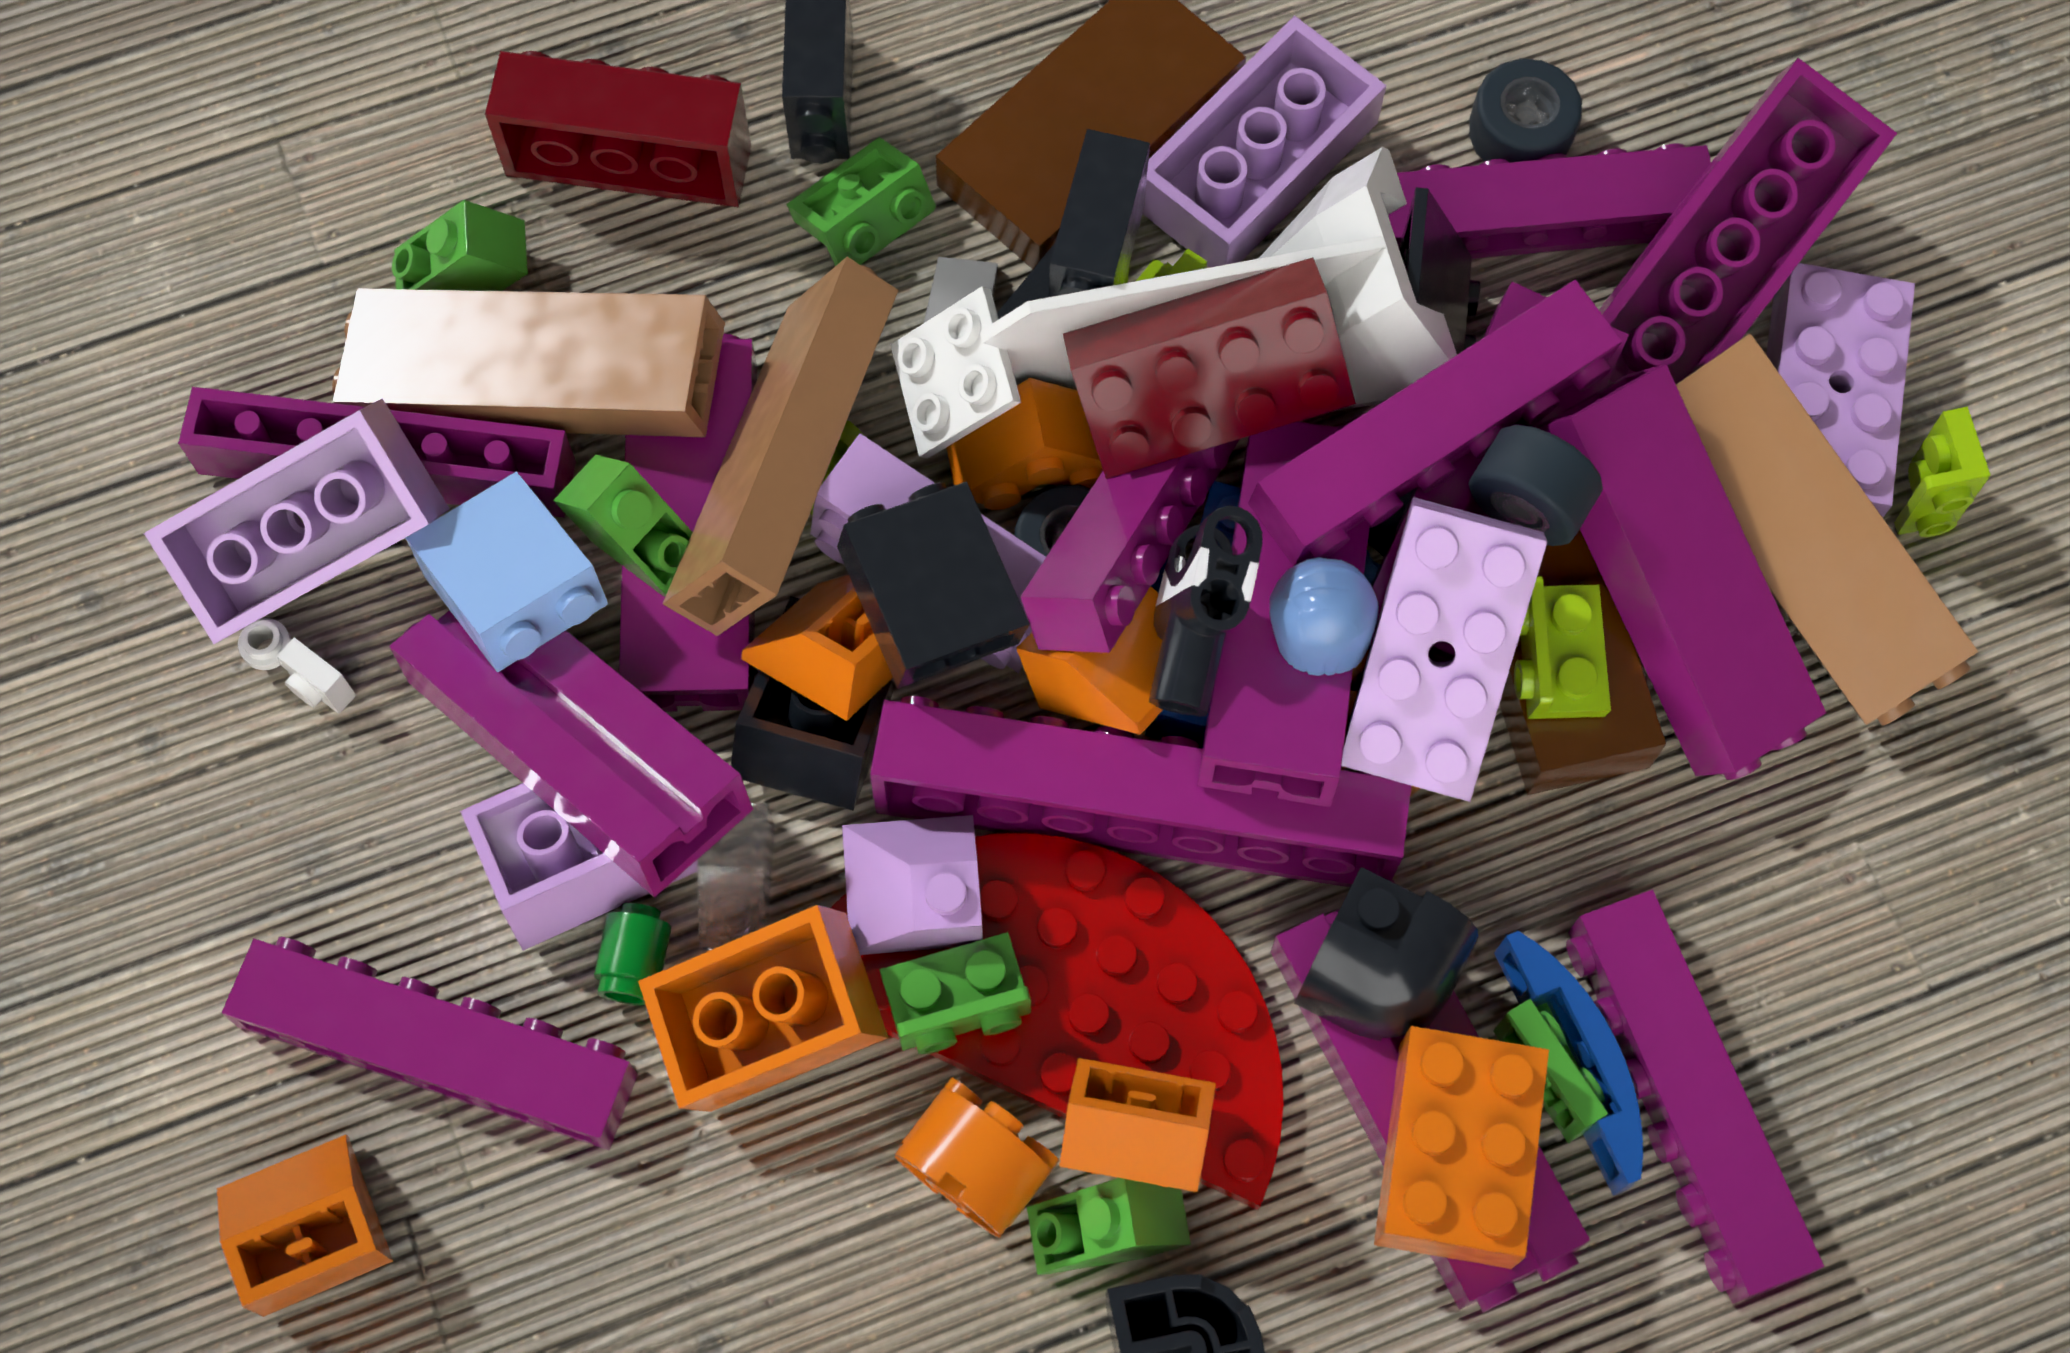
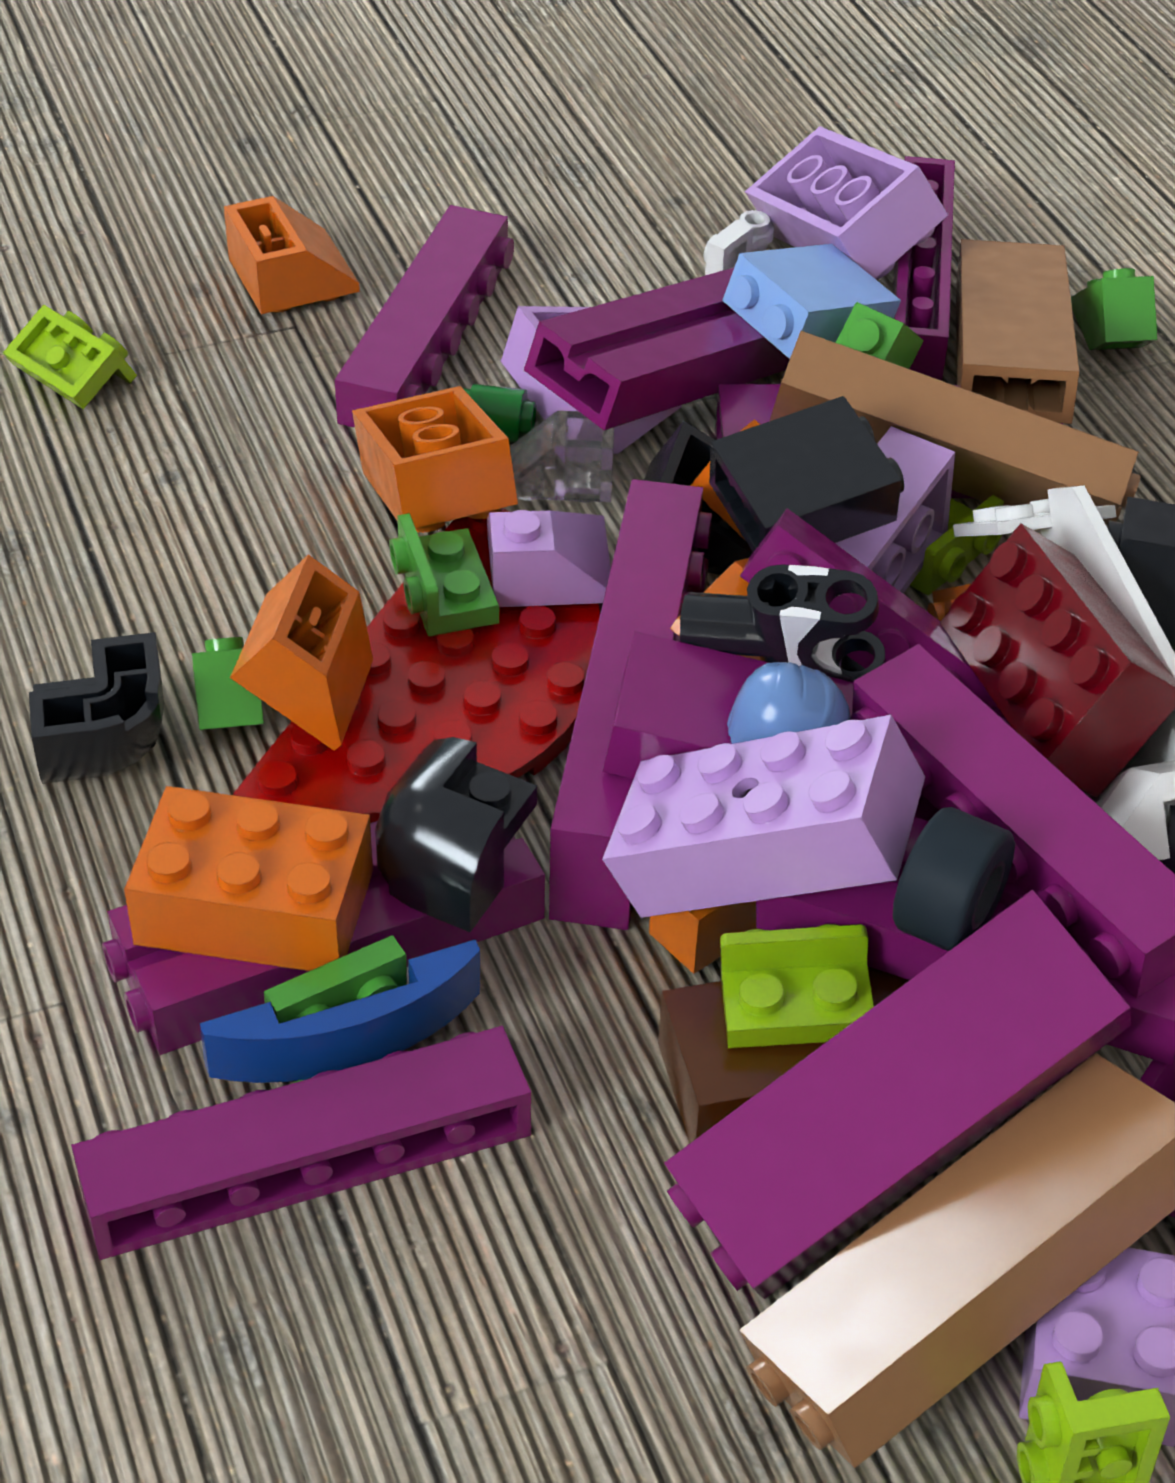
camera: 90 degrees right, 25 degrees down
(976, 1157) = (269, 555): orange brick -> none

